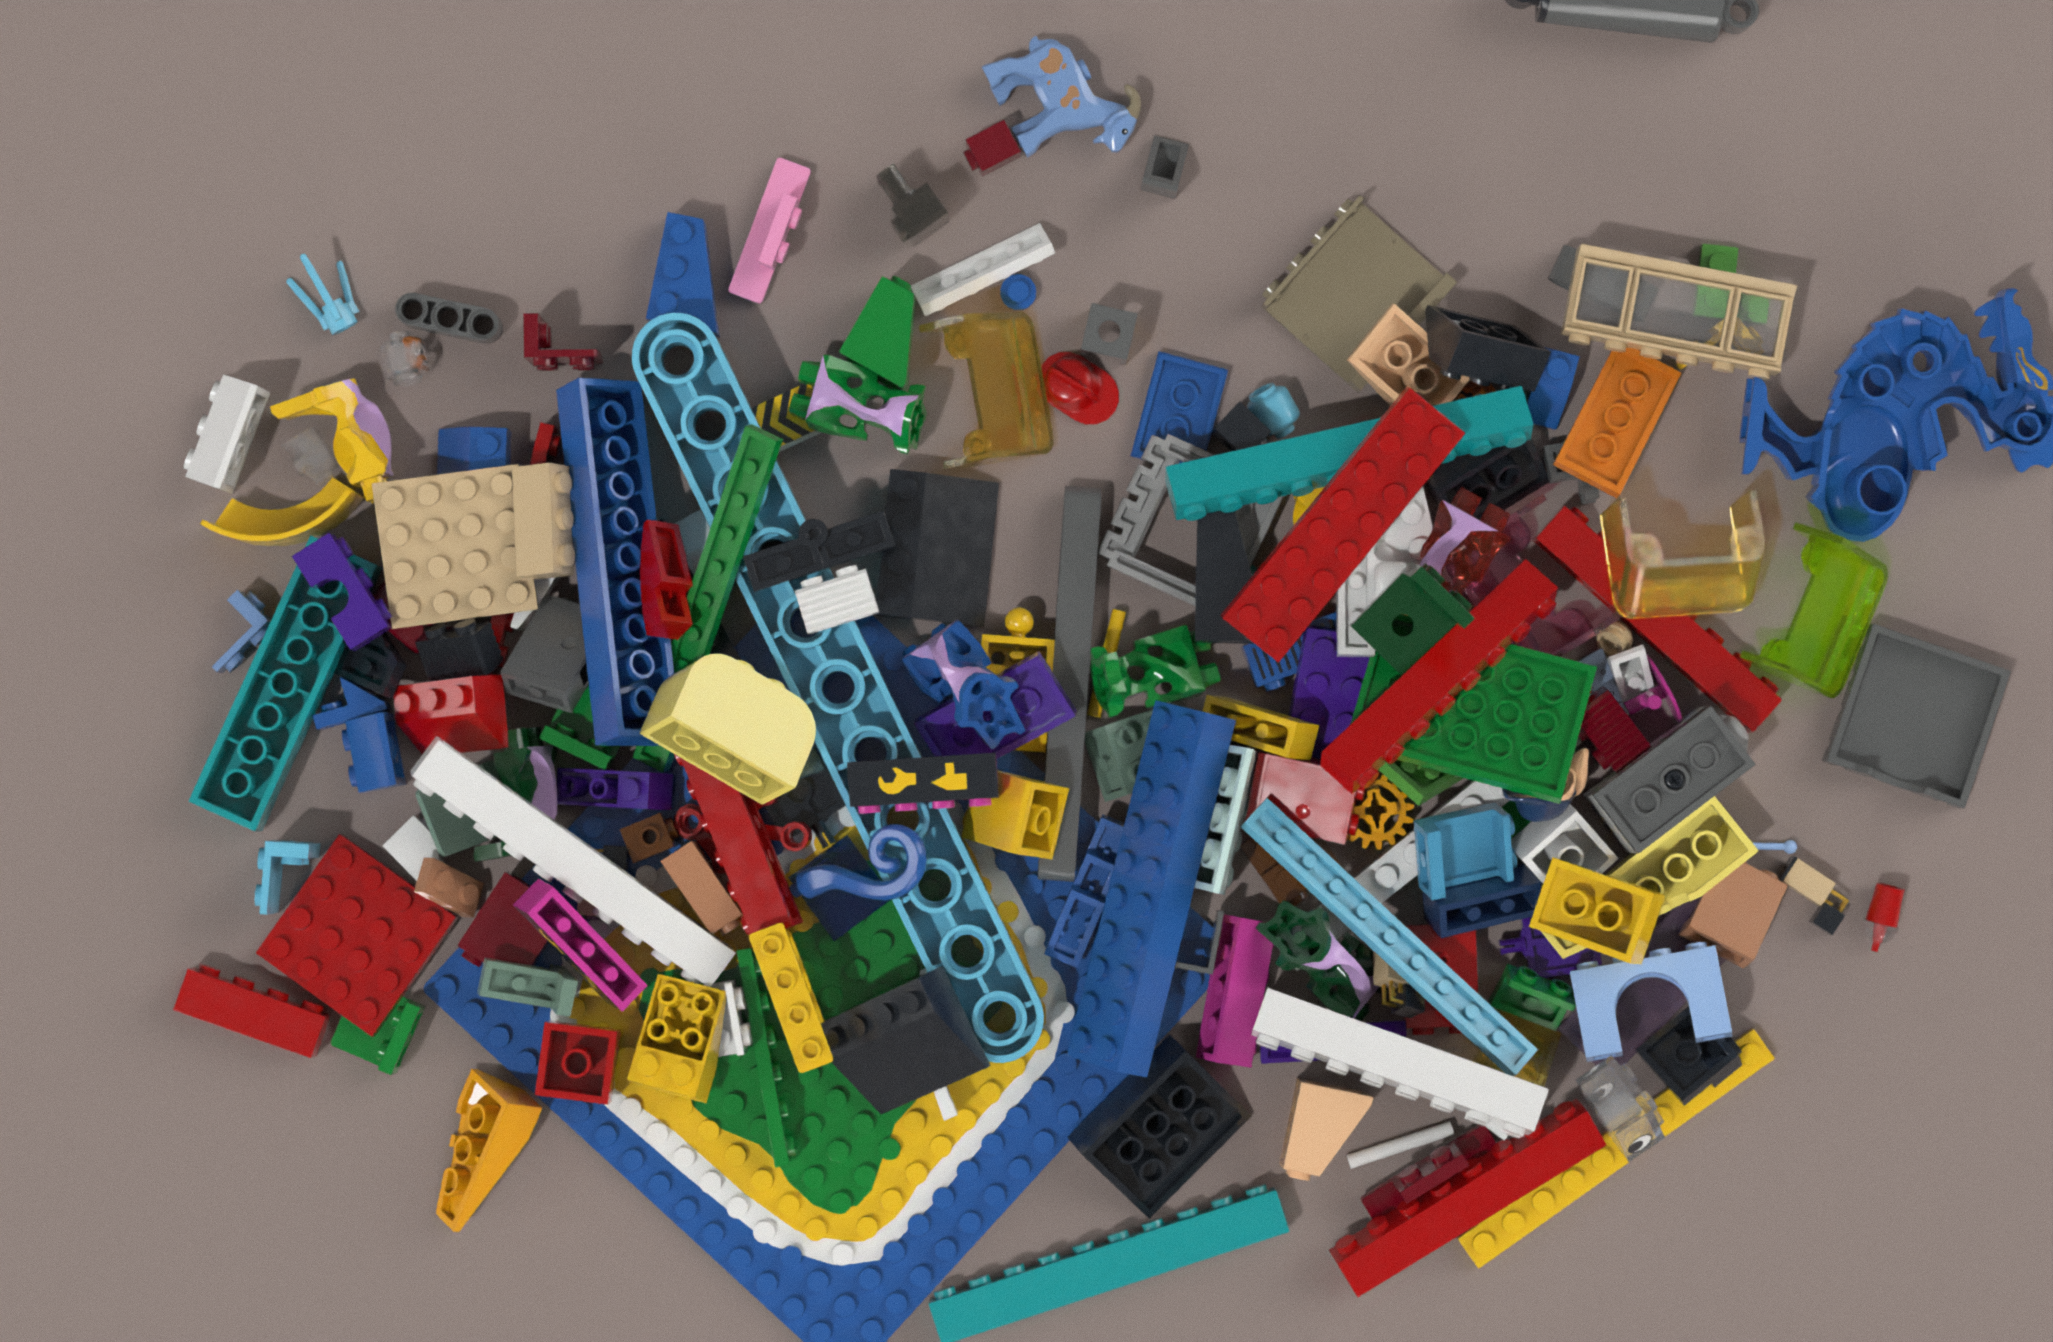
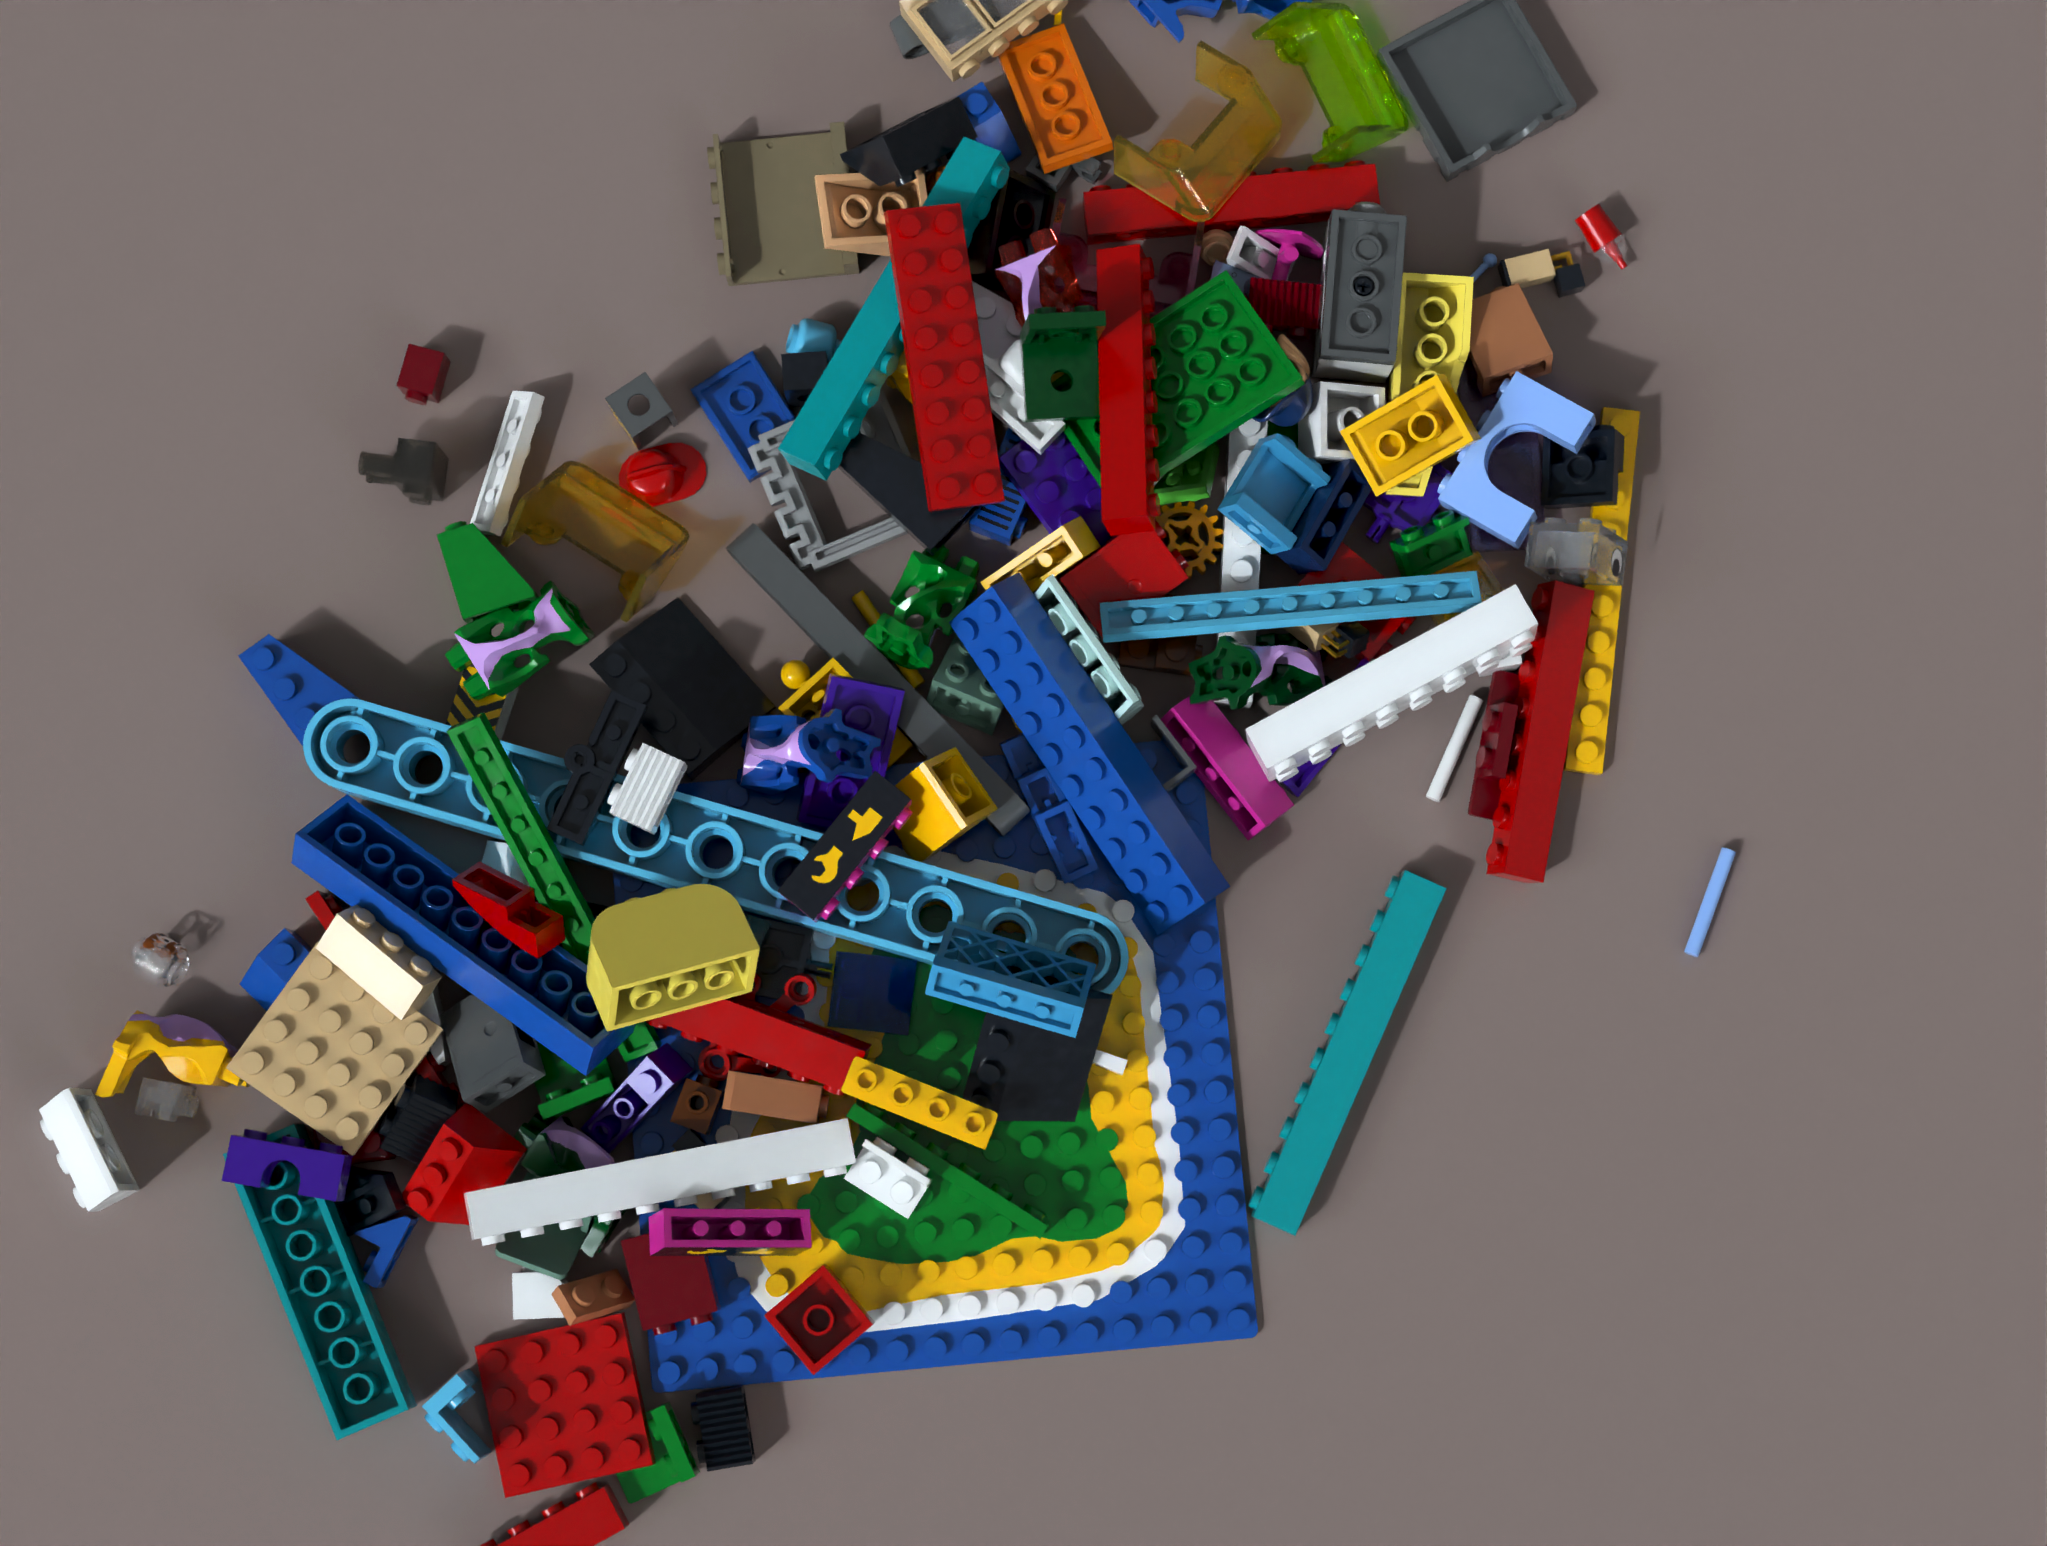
camera: 45 degrees left, 5 degrees down
(251, 608) = (238, 1254): medium blue bracket -> none
(290, 524) = (204, 1166): yellow panel -> none
(337, 315) = (79, 981): medium azure plant -> none
(374, 752) = (437, 1260): blue slope -> none
(434, 308) = (144, 899): dark grey beam -> none
(442, 1062) = (724, 1428): none -> black brick
(490, 1135) = (814, 1441): light orange wedge -> none
(529, 984) = (723, 1301): sand green bracket -> none
(539, 337) = (264, 846): dark red bracket -> none
(680, 1039) = (874, 1223): yellow slope -> none
(769, 230) = (327, 595): bright pink bracket -> none
(828, 877) = (853, 993): blue plant -> none
(920, 991) = (1010, 993): none -> dark azure fence
(1018, 292) = (548, 453): blue plate -> none
(1064, 95) = (433, 285): medium blue animal -> none
(1159, 1127) = (1277, 917): black slope -> none
(1164, 167) = (559, 262): dark grey slope -> none
(1319, 1125) = (1385, 793): light nougat slope -> none

